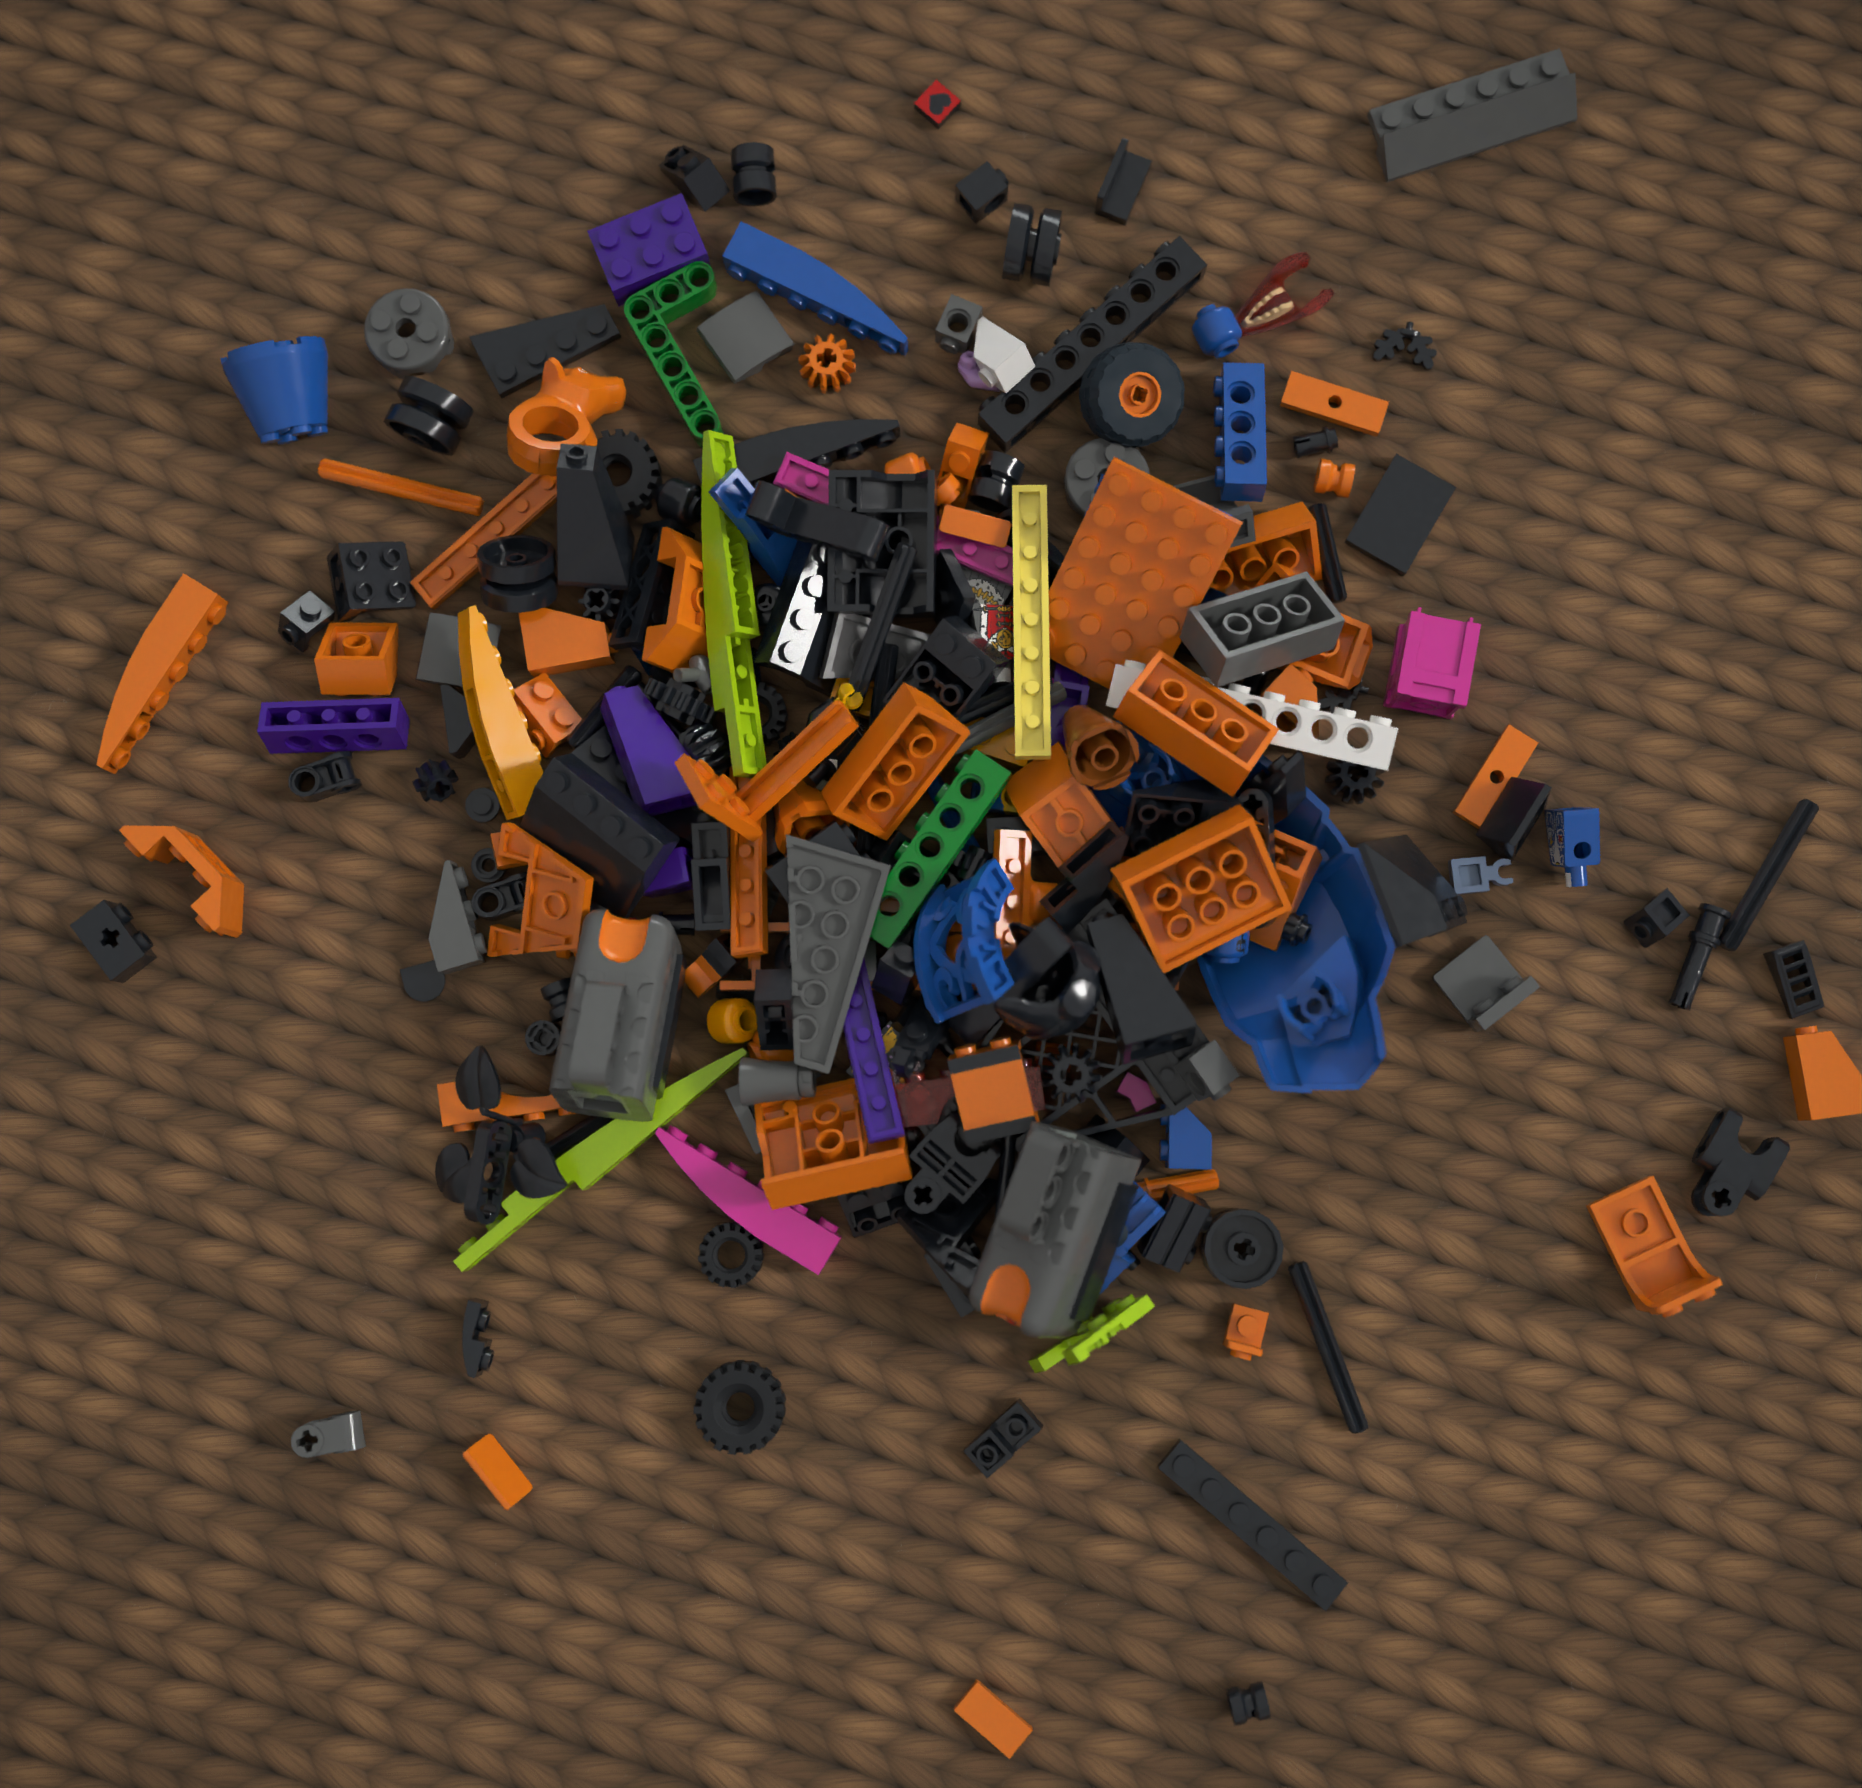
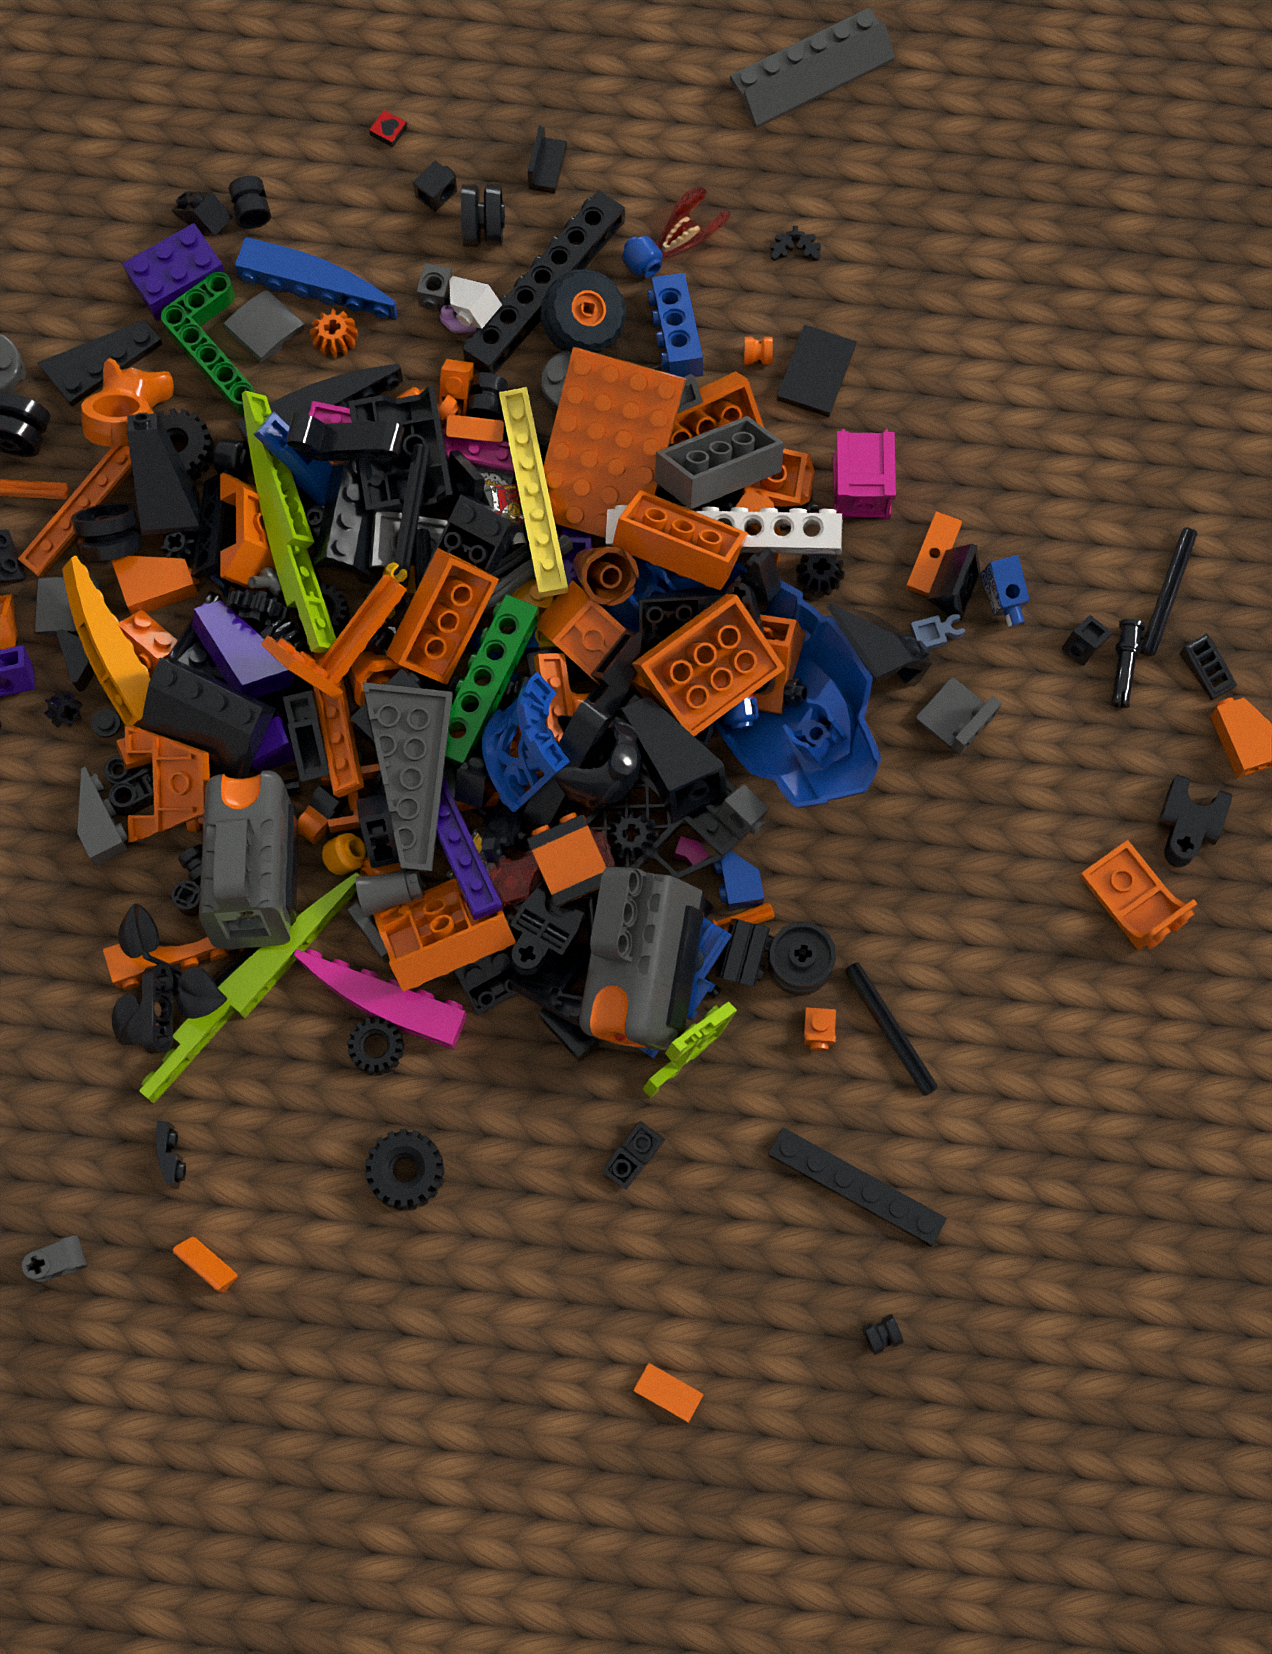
camera: 15 degrees left, 10 degrees down
(423, 981) = (78, 873): black piece -> none
(1315, 442) = (738, 327): black pin -> none
(1329, 558) = (764, 407): black axle -> none
(1354, 408) = (731, 294): orange tile -> none

